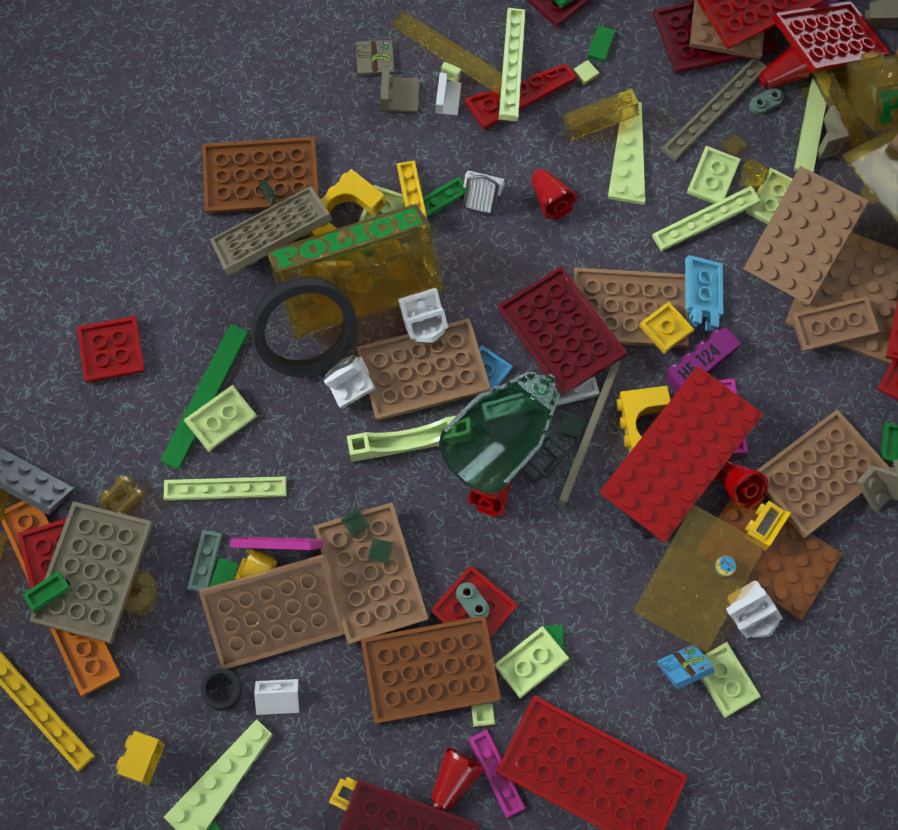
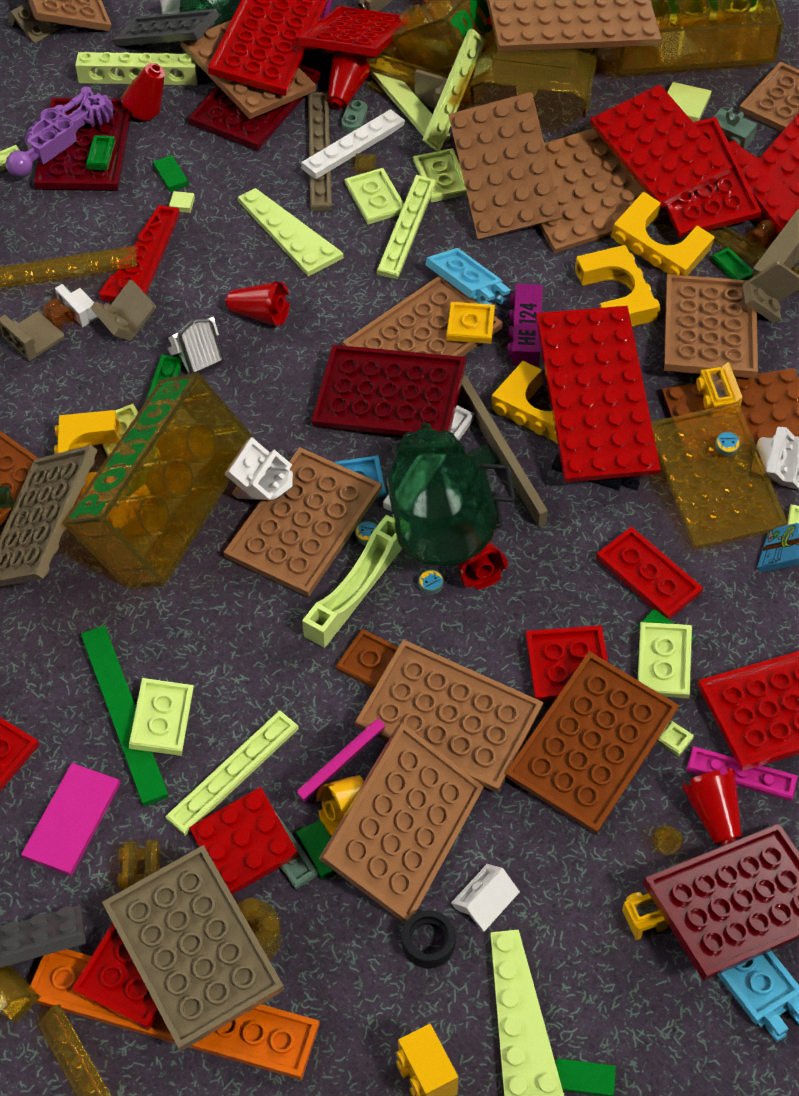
camera: 40 degrees left, 15 degrees down
(46, 592) = (168, 1003): green tile -> none
(117, 433) = (71, 819): none -> dark pink tile
(187, 536) = (245, 840): none -> red plate
(295, 287) = (118, 561): black tyre -> none
(349, 380) = (249, 581): white piece -> none
(355, 522) = (390, 683): clear green tile -> none
(367, 491) = (366, 658): none -> dark orange tile
(380, 551) = (439, 685): clear green tile -> none
(407, 767) = (667, 839): none -> clear yellow tile
(410, 185) = (122, 391): yellow tile -> none
(428, 88) = (58, 313): none -> clear orange wheel
(451, 409) = (363, 532): none -> tile
(452, 481) = (430, 582): none -> tile
(453, 72) = (65, 279): yellowish green tile -> none
(464, 128) = (126, 312): none -> dark tan bracket
(472, 601) = (563, 655): sand green plate -> none
(512, 65) = (114, 236): yellowish green tile -> none
(585, 600) = (649, 573): none -> red plate
(601, 114) = (233, 216): clear yellow brick -> none
(739, 123) = (352, 144): none -> white plate
(743, 484) = (669, 375): red cone -> none
(753, 174) = (406, 168): clear yellow helmet -> none
(811, 372) = (620, 266): none -> yellow arch
(835, 323) = (595, 215): medium nougat plate -> none
(843, 142) = (454, 89): none -> yellowish green tile
(855, 405) = (672, 259): none -> yellow arch

